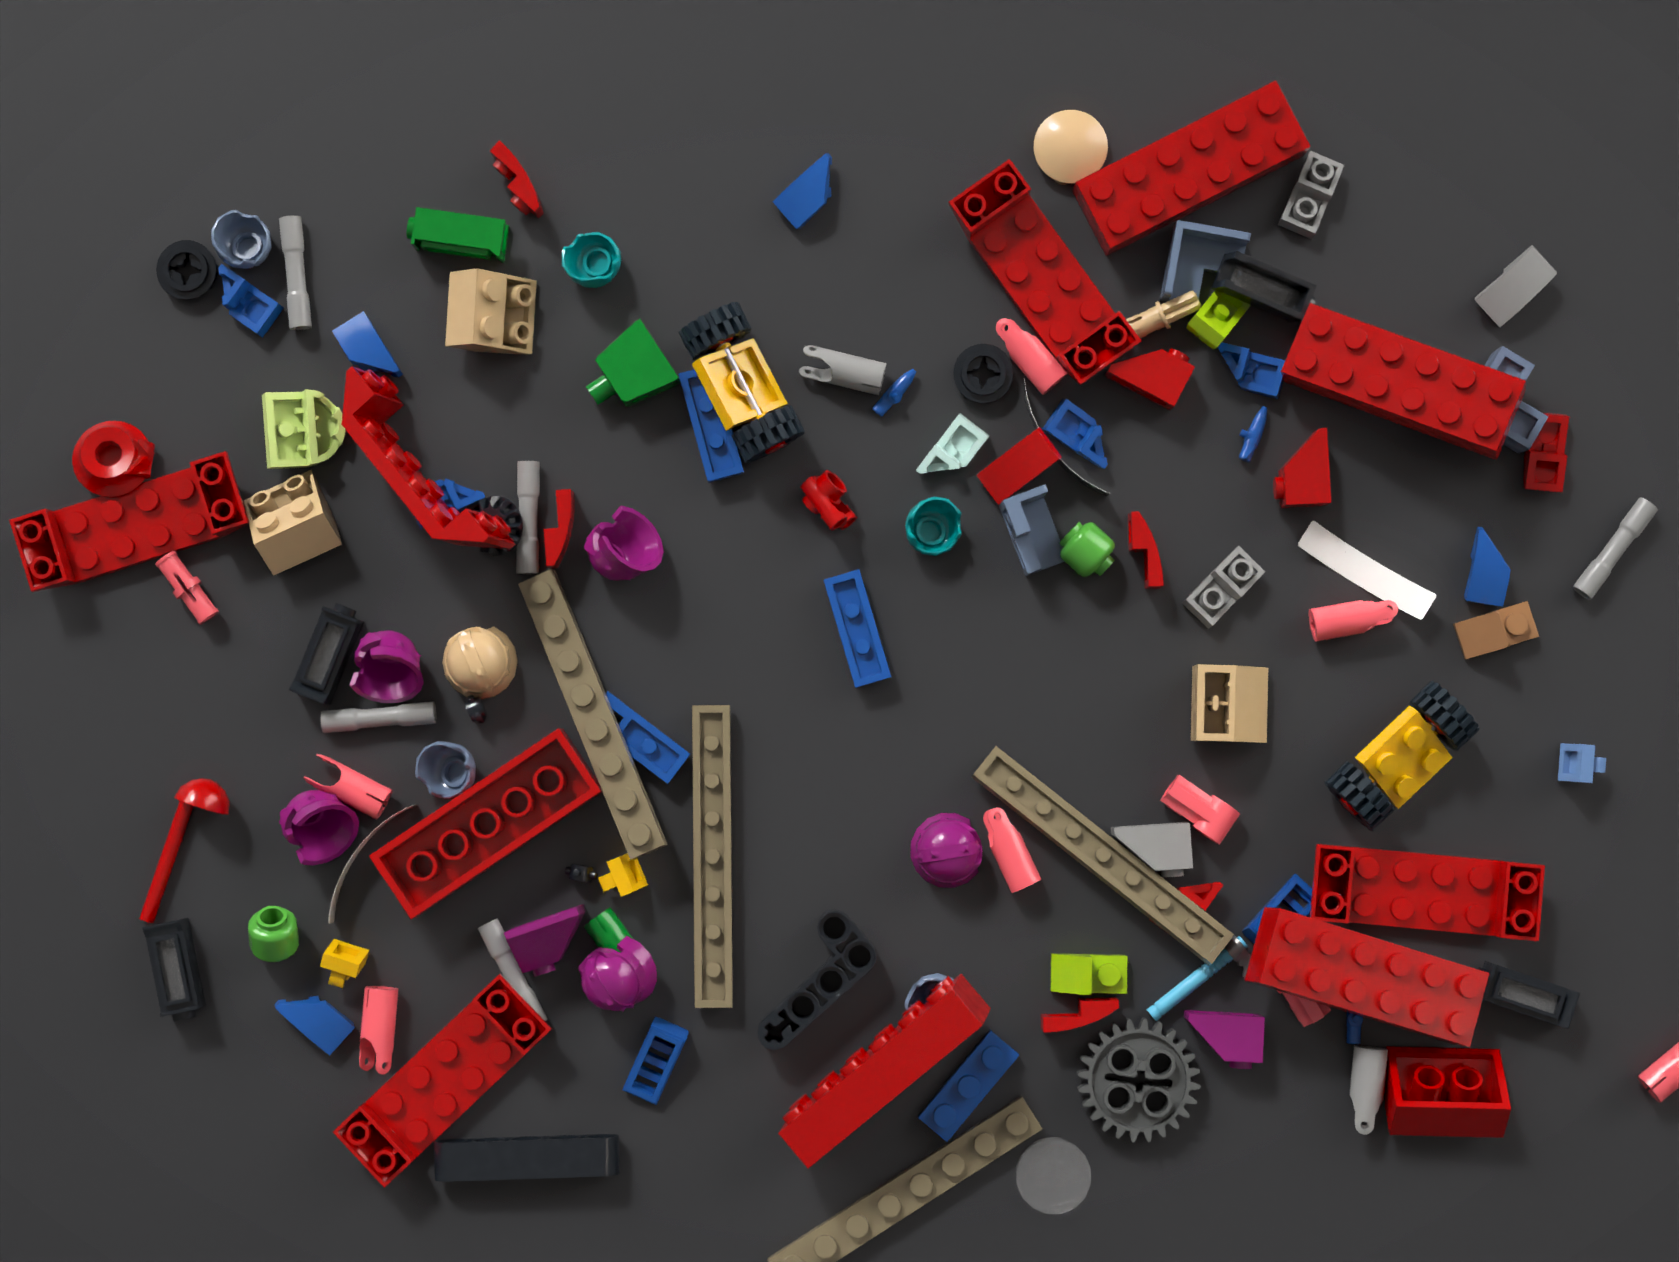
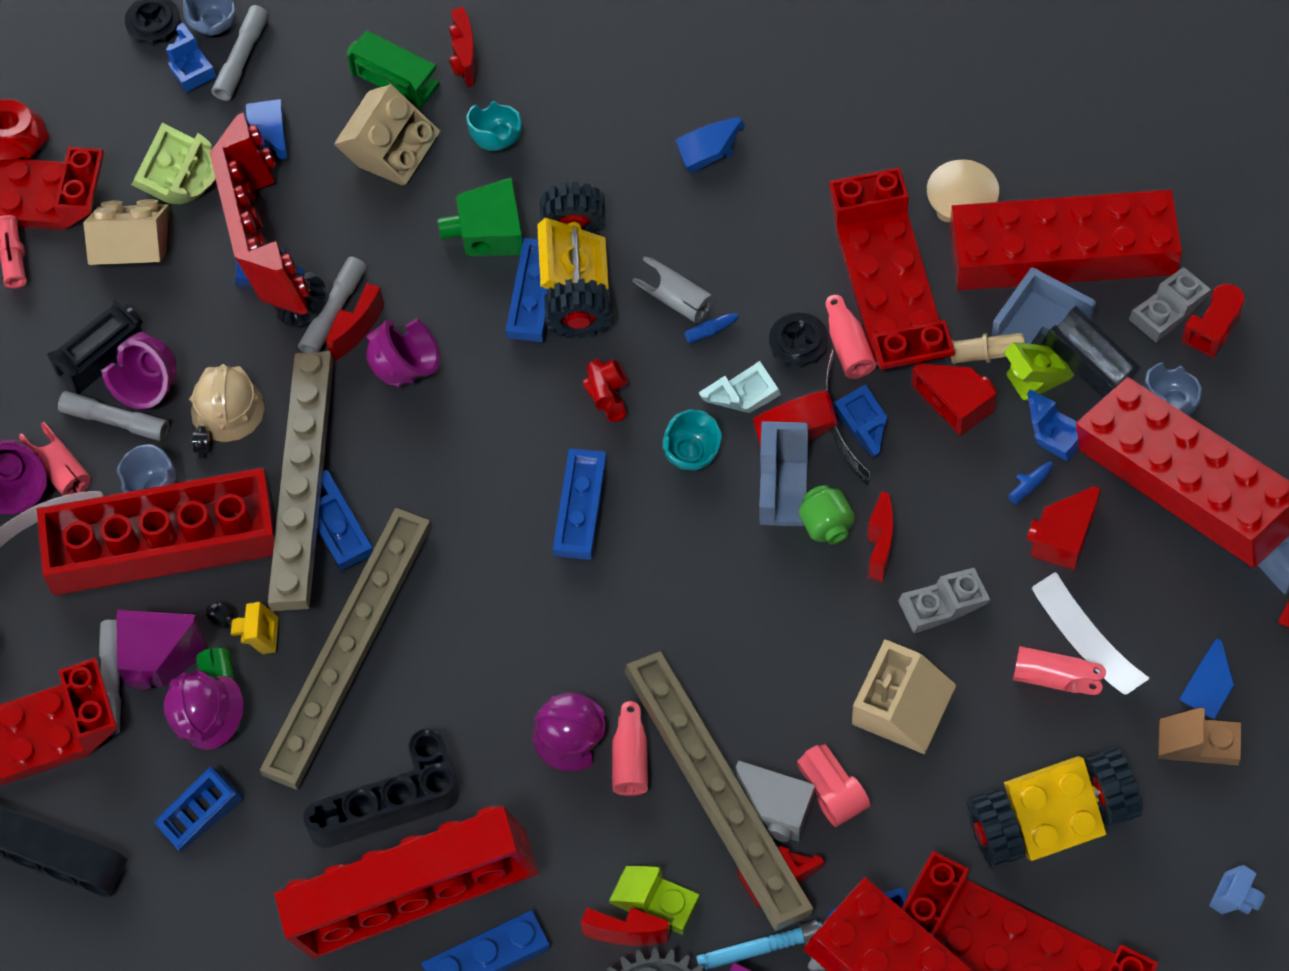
camera: 25 degrees right, 25 degrees down
(1351, 292) = (1175, 387): none -> sand blue hair
(1364, 197) = (1219, 320): none -> red leg

